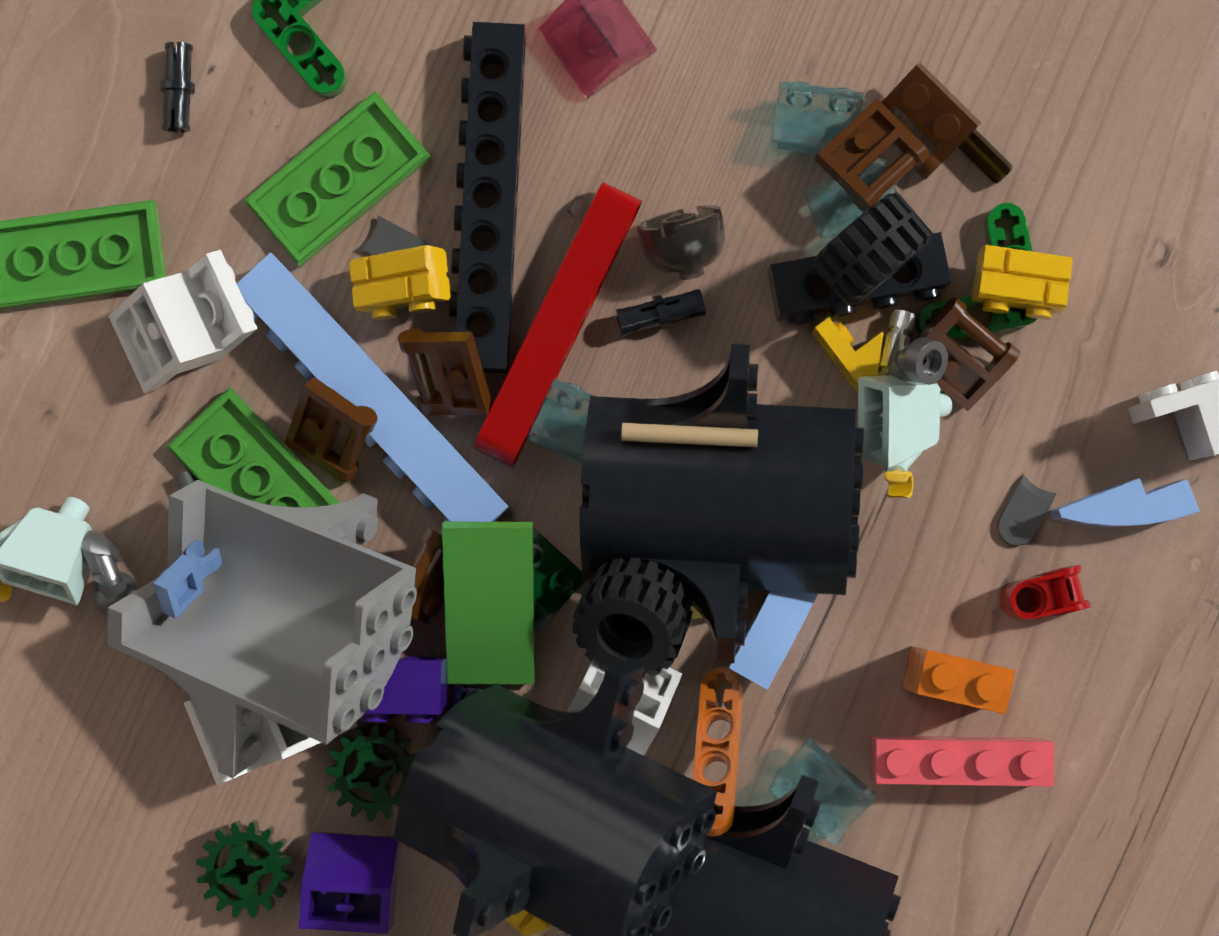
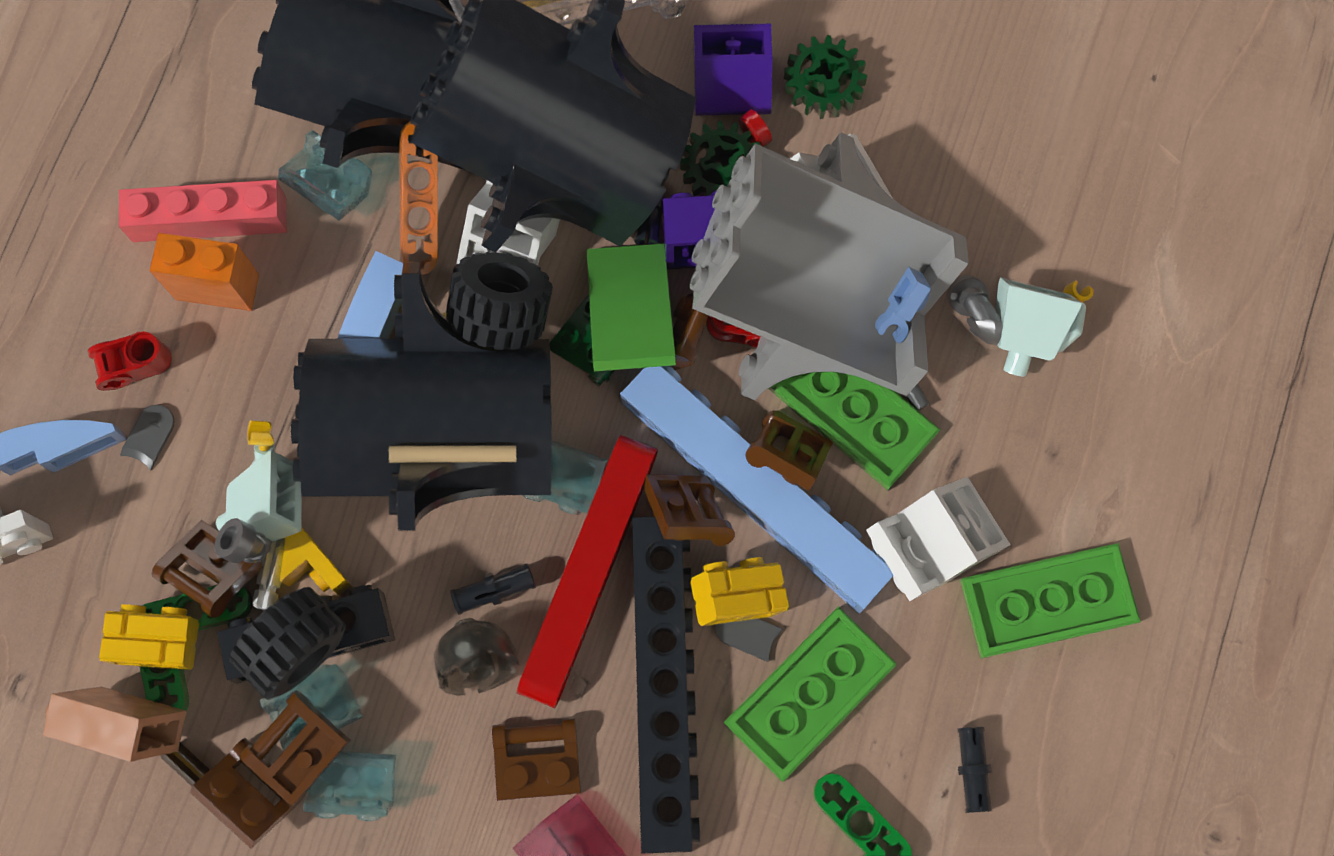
camera: 175 degrees right, 10 degrees down
(333, 815) = (755, 124): none -> red tile
(626, 120) = (536, 774): none -> reddish brown plate
(1057, 192) = (114, 723): none -> nougat brick

